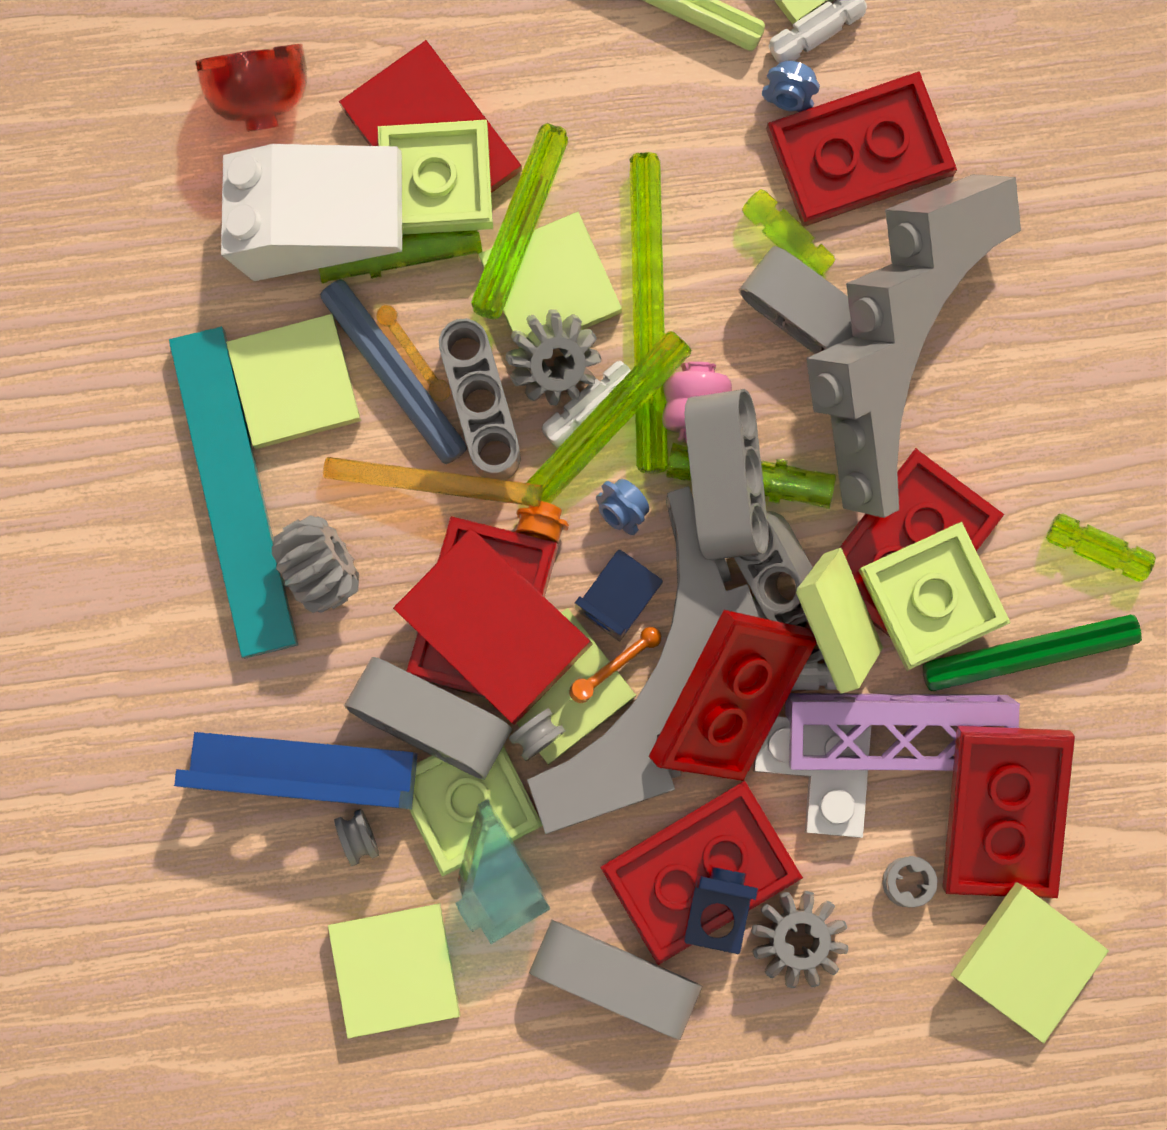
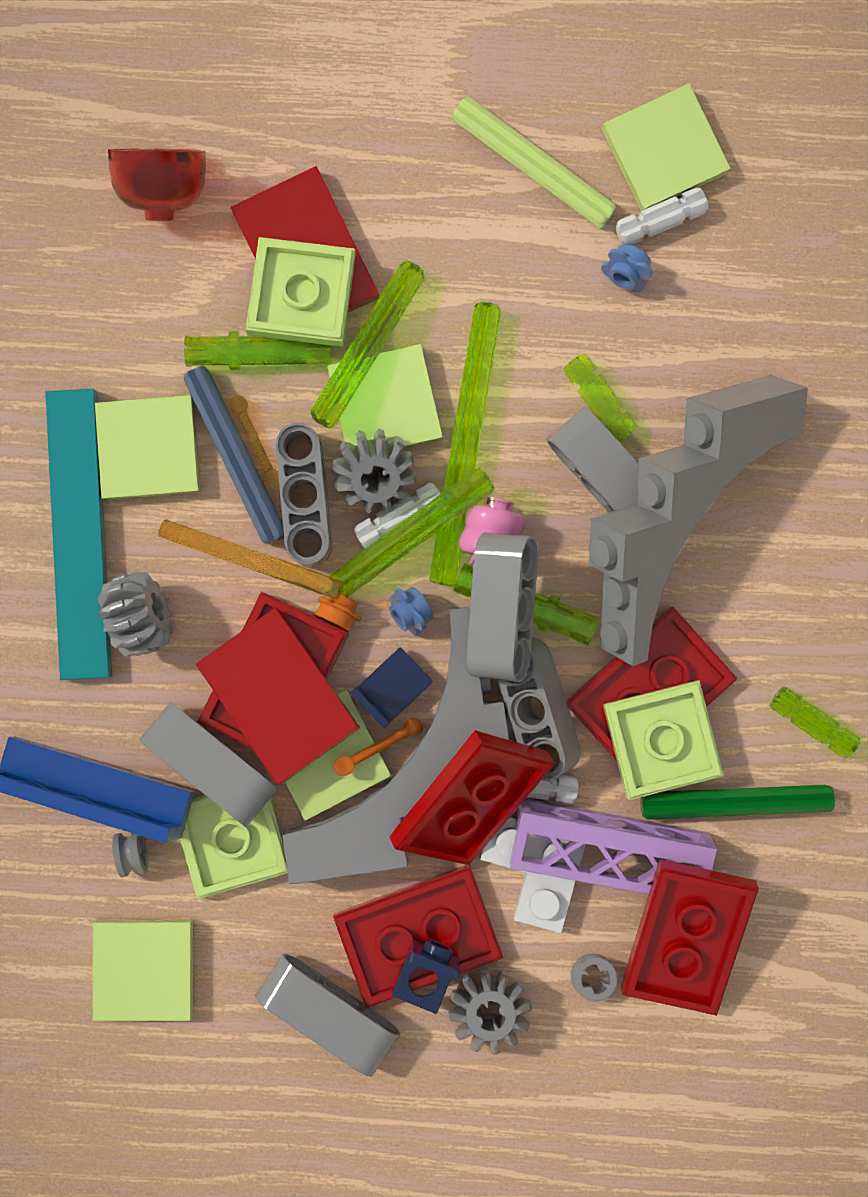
camera: 10 degrees right, 5 degrees up
(309, 207) = (185, 299): white slope -> none
(496, 880) = (242, 914): clear light blue slope -> none
(537, 734) = (298, 797): light grey bush -> none
(839, 620) = (576, 750): yellowish green tile -> none
(861, 149) = (678, 333): red tile -> none
(1030, 962) = (681, 1066): yellowish green tile -> none

